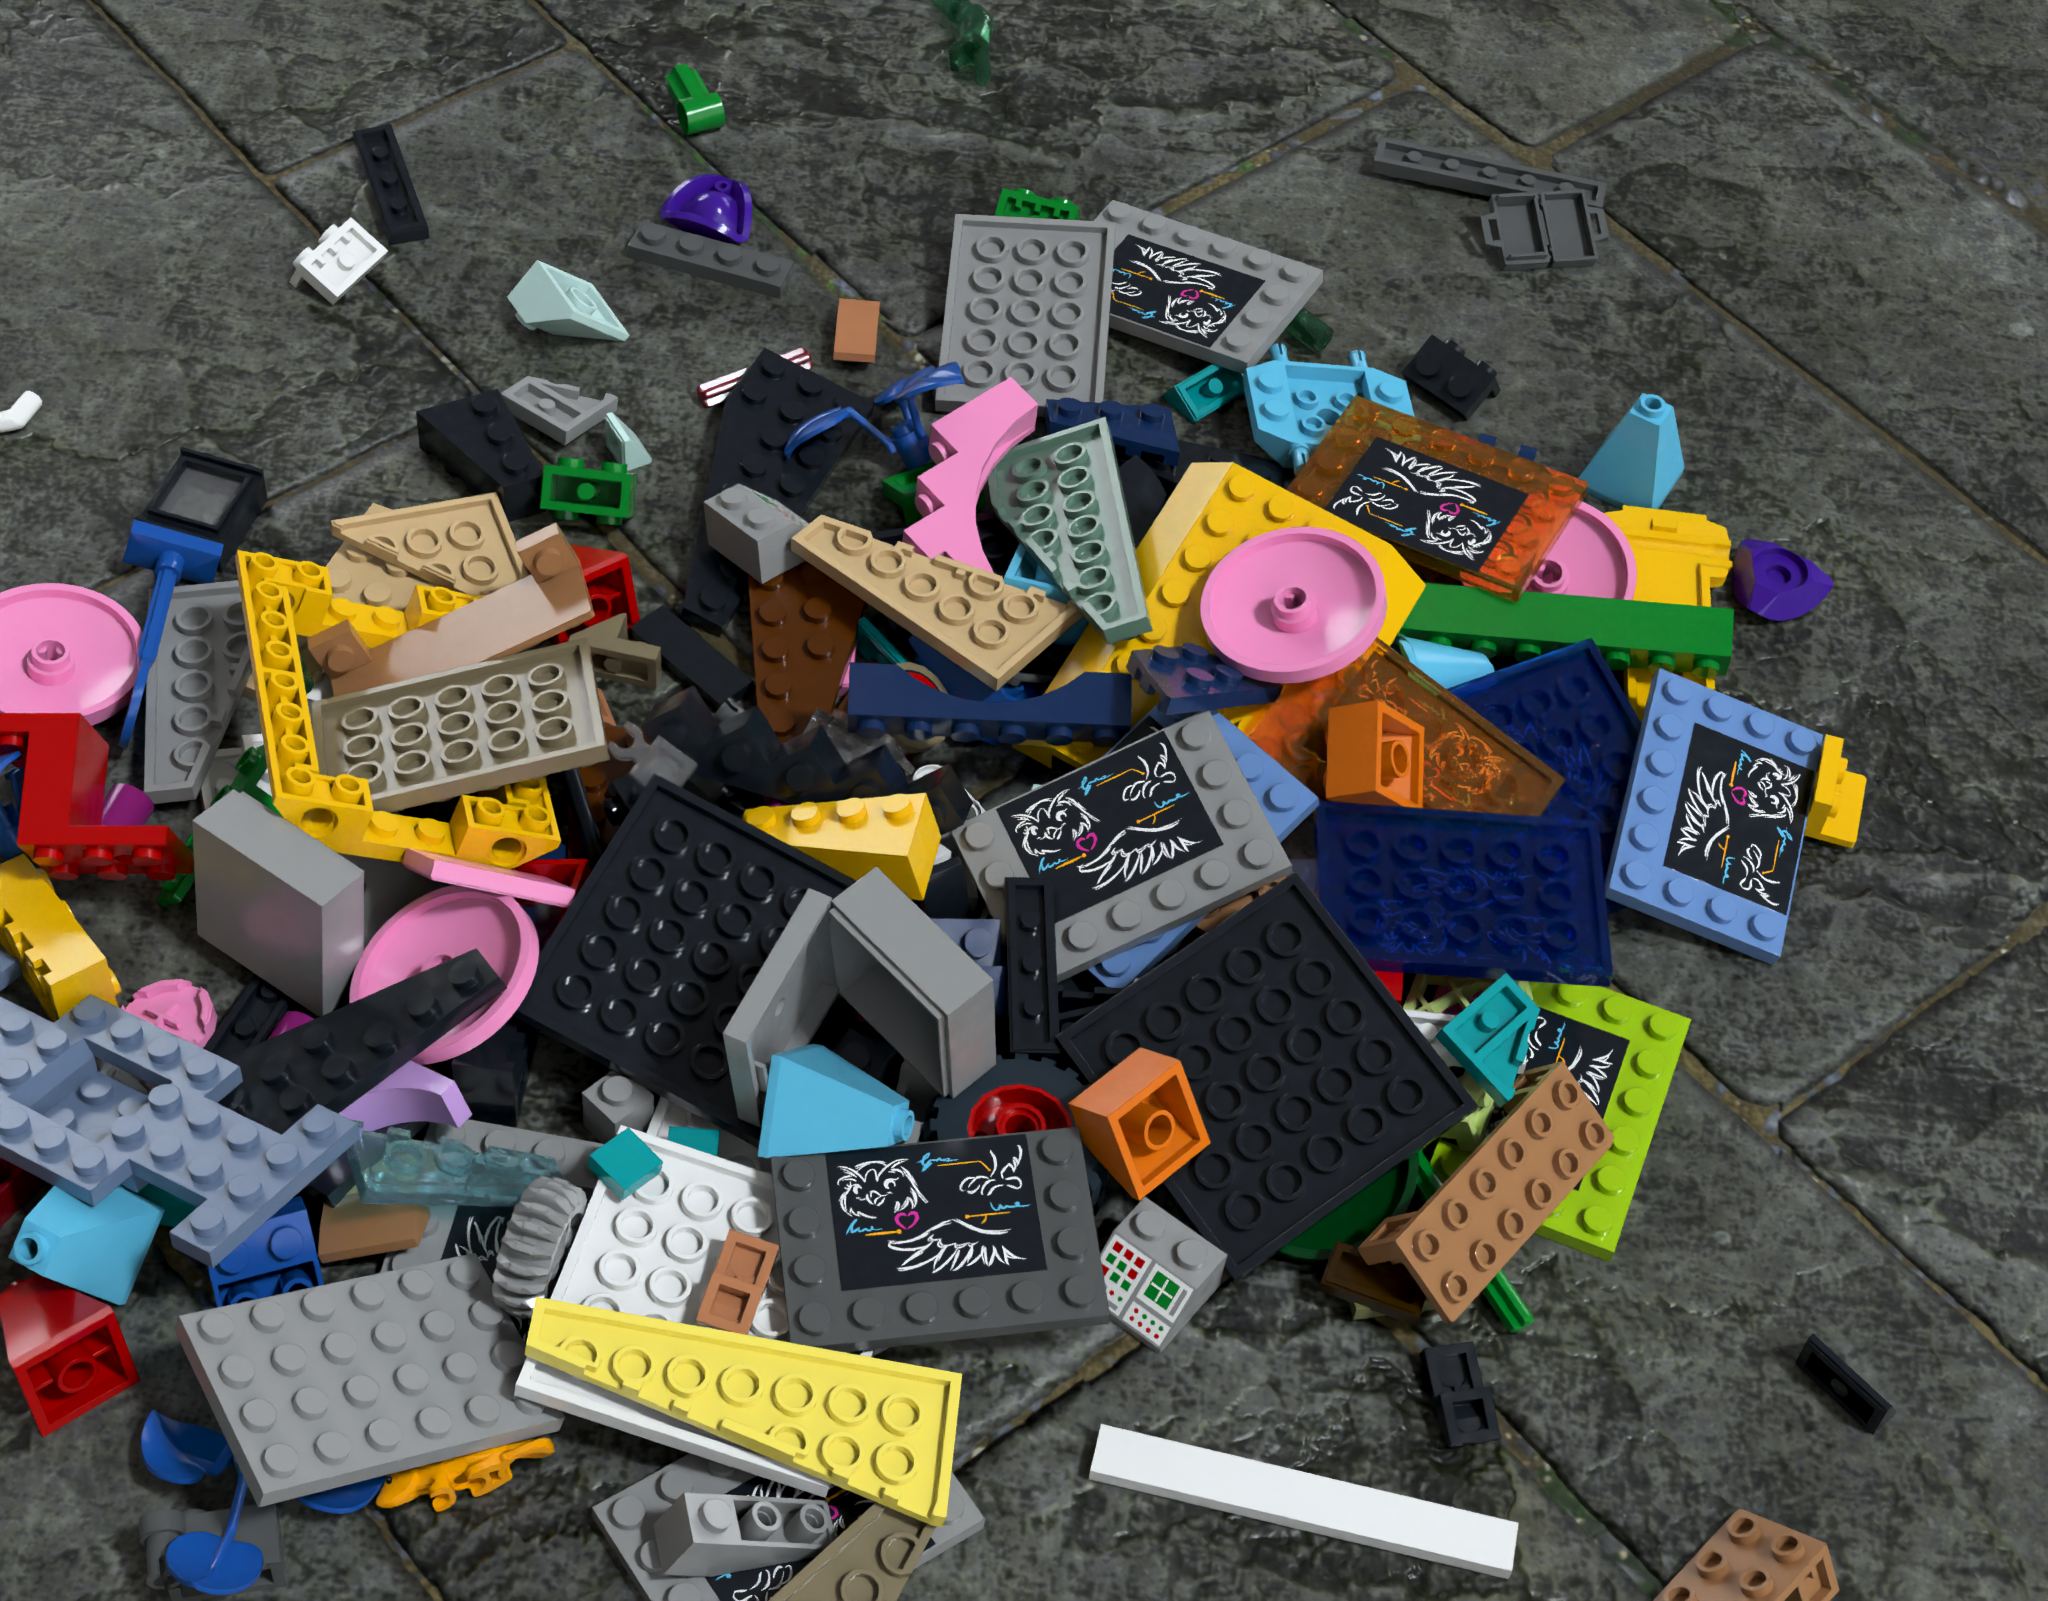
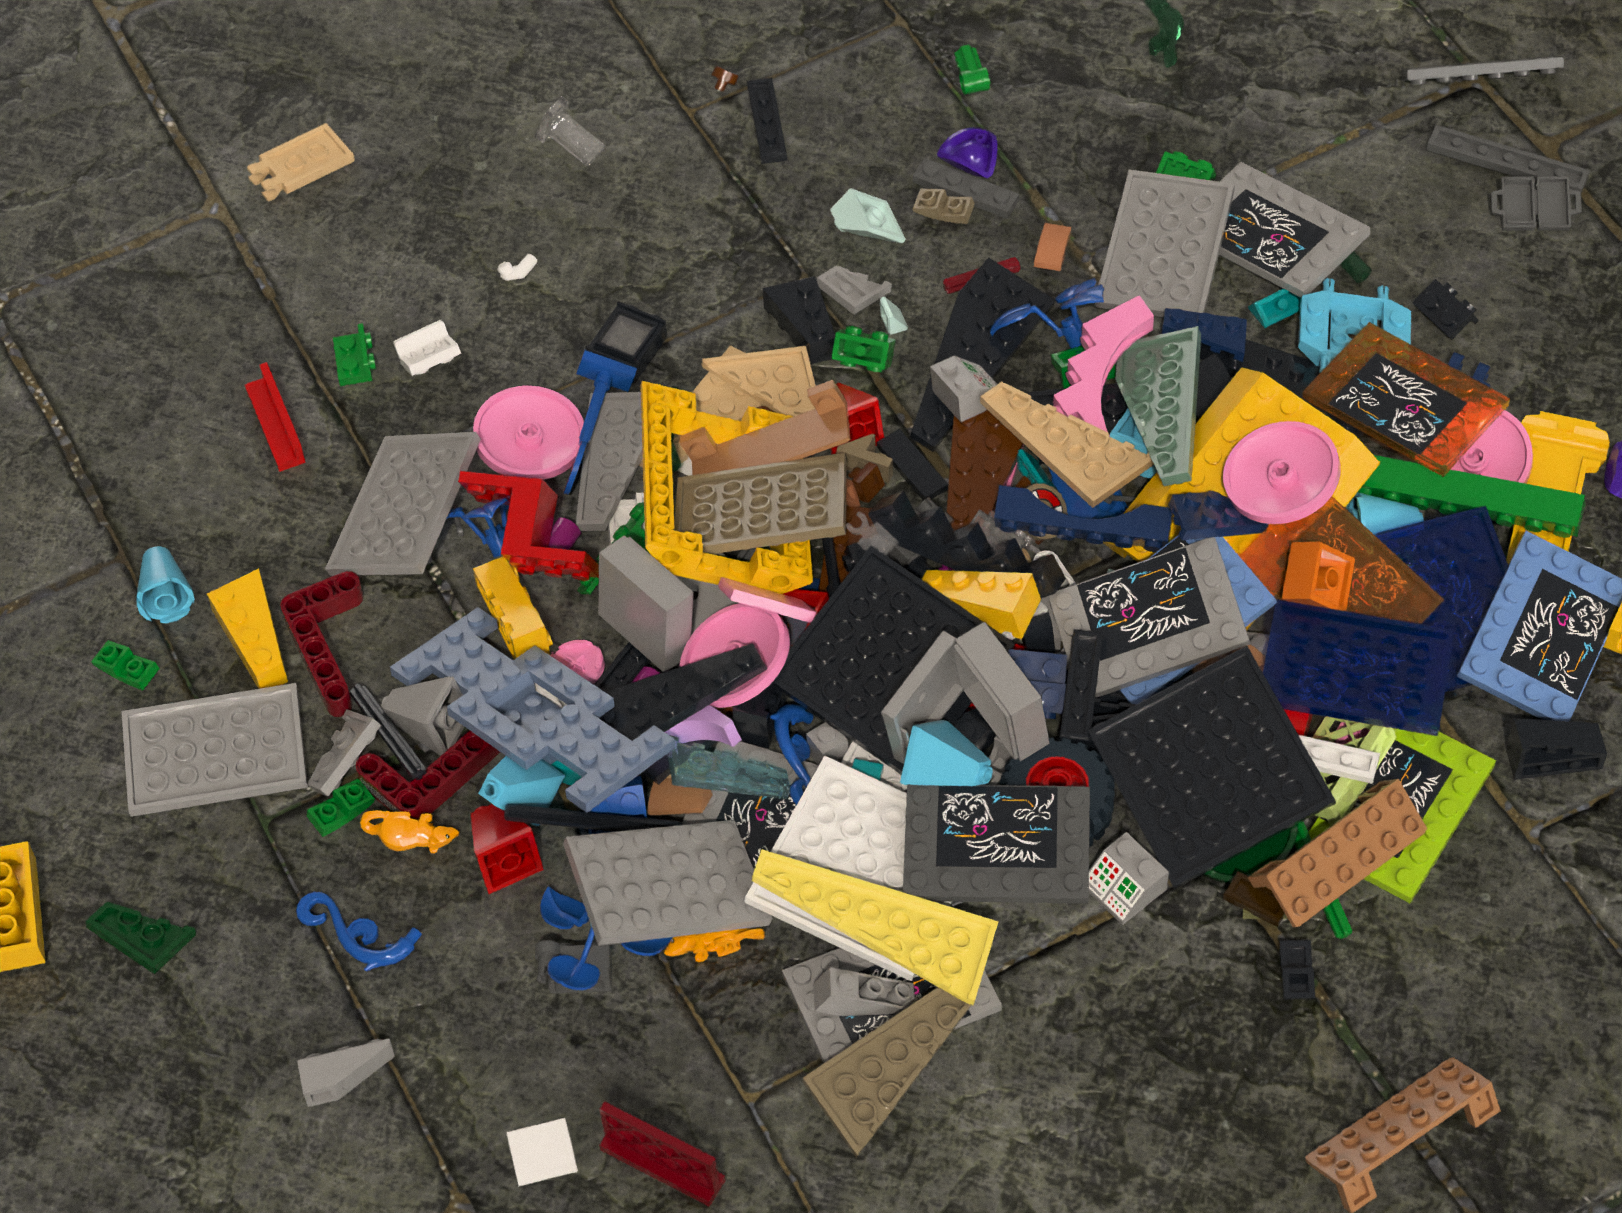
camera: 20 degrees right, 5 degrees up
(76, 213) = (569, 133): none -> clear bracket
(200, 1282) = (582, 819): none -> black axle
(316, 127) = (723, 78): none -> reddish brown tile
(338, 261) = (728, 176): white bracket -> none
(537, 1244) = (767, 818): light grey gear -> none
(565, 1118) = (795, 747): none -> blue plant
(623, 687) = (867, 481): none -> reddish brown tile
(625, 1163) = (823, 778): teal tile -> none
(670, 285) = (939, 206): none -> dark tan slope
(737, 1283) = (877, 855): nougat slope -> none
(1141, 1121) = (1128, 787): orange slope -> none
(1304, 1501) = (1190, 1019): white tile -> none
(1409, 66) = (1494, 69): none -> plate
(1493, 1037) = (1353, 759): teal wing -> none
(1638, 457) = (1557, 380): medium azure slope -> none
(1772, 991) = (1554, 747): none -> black wedge
(1844, 1385) = (1536, 993): black slope -> none

